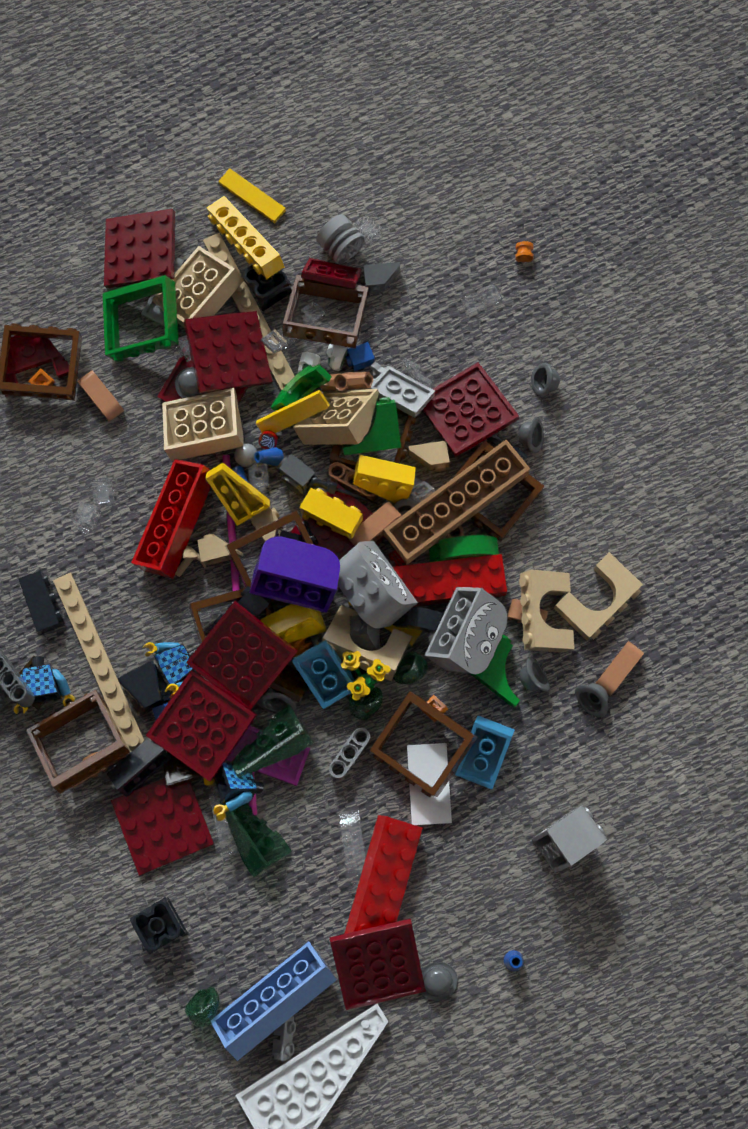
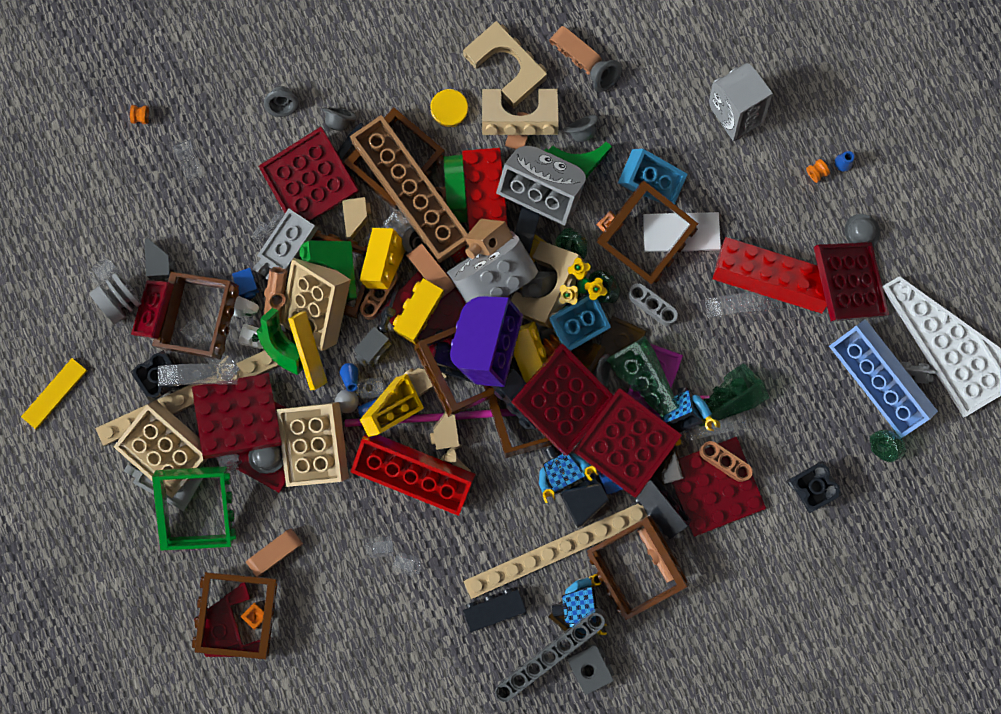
camera: 90 degrees left, 5 degrees up
(139, 248) = (110, 511): dark red plate -> none
(183, 840) = (735, 462): none -> nougat beam
(245, 238) = (71, 421): yellow brick -> none
(265, 314) = (197, 374): none -> clear slope
(268, 439) = (331, 379): tile -> none
(316, 721) = (620, 335): none -> dark brown tile
(405, 574) = (487, 237): none -> medium nougat torso
(501, 931) = (818, 170): none -> orange wheel
(549, 542) = (449, 108): none -> yellow tile

